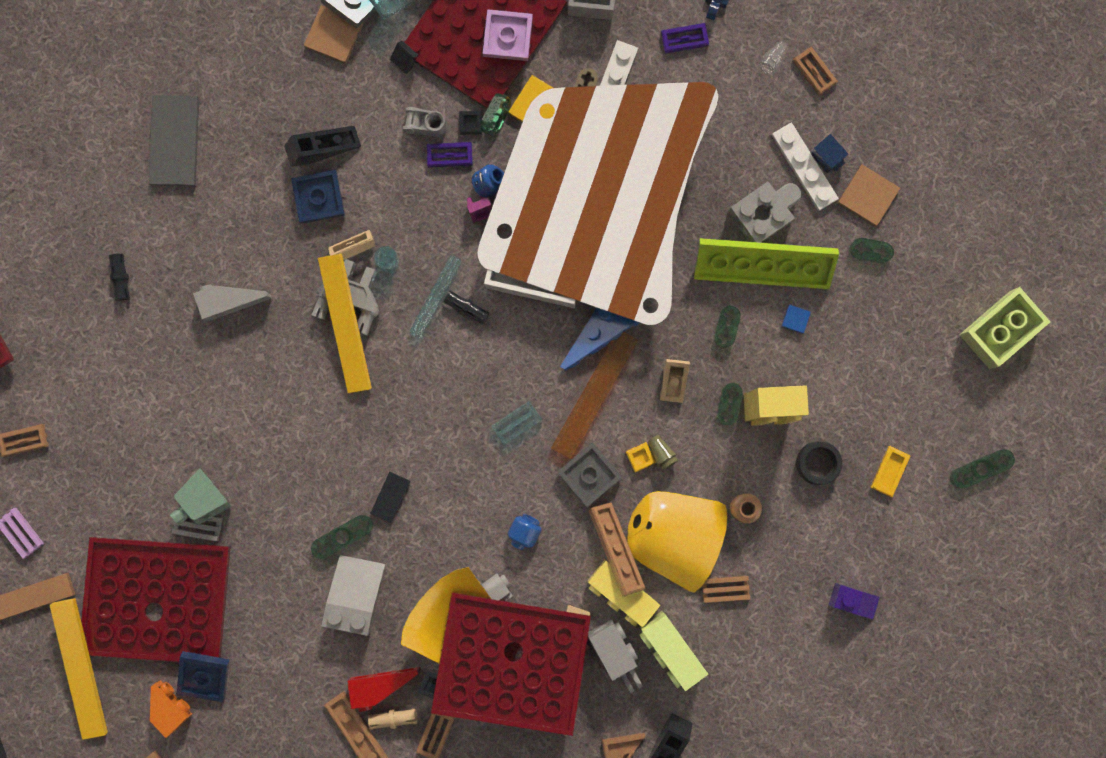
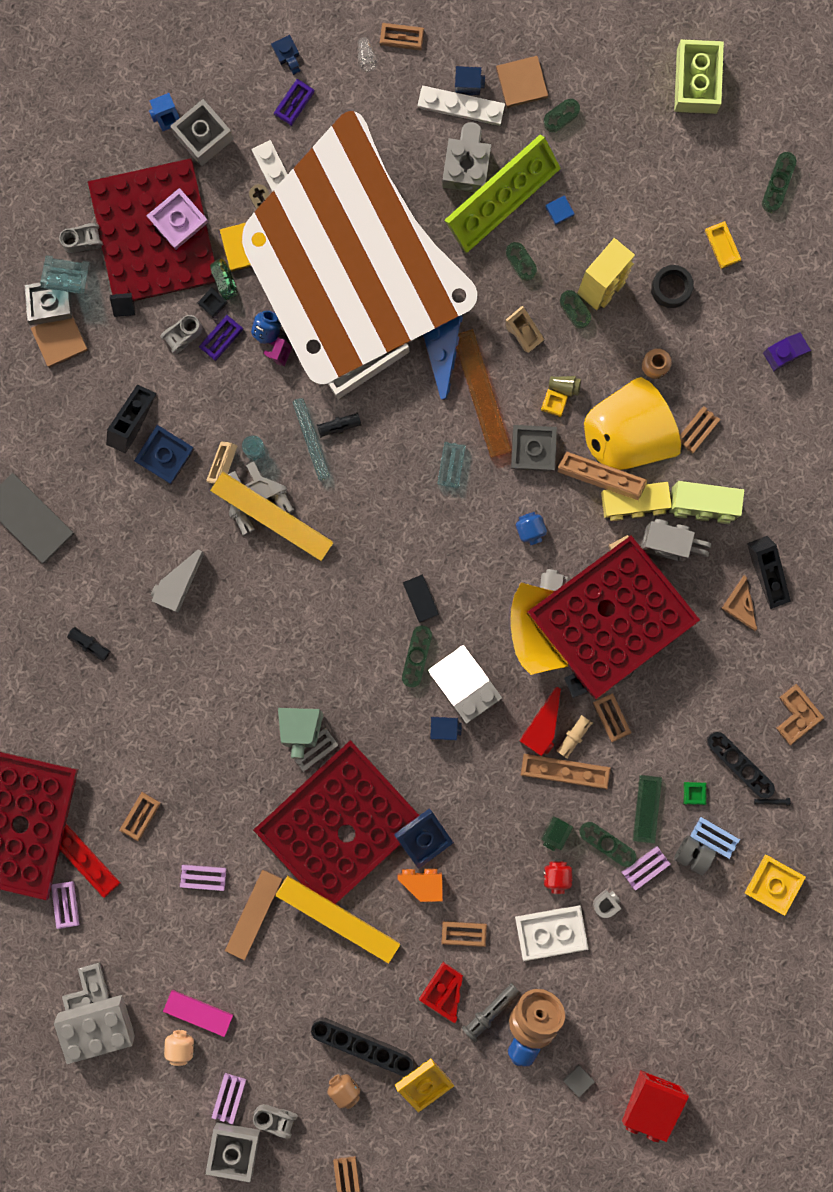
camera: 40 degrees left, 0 degrees up
(305, 611) = (445, 728): none -> dark blue brick

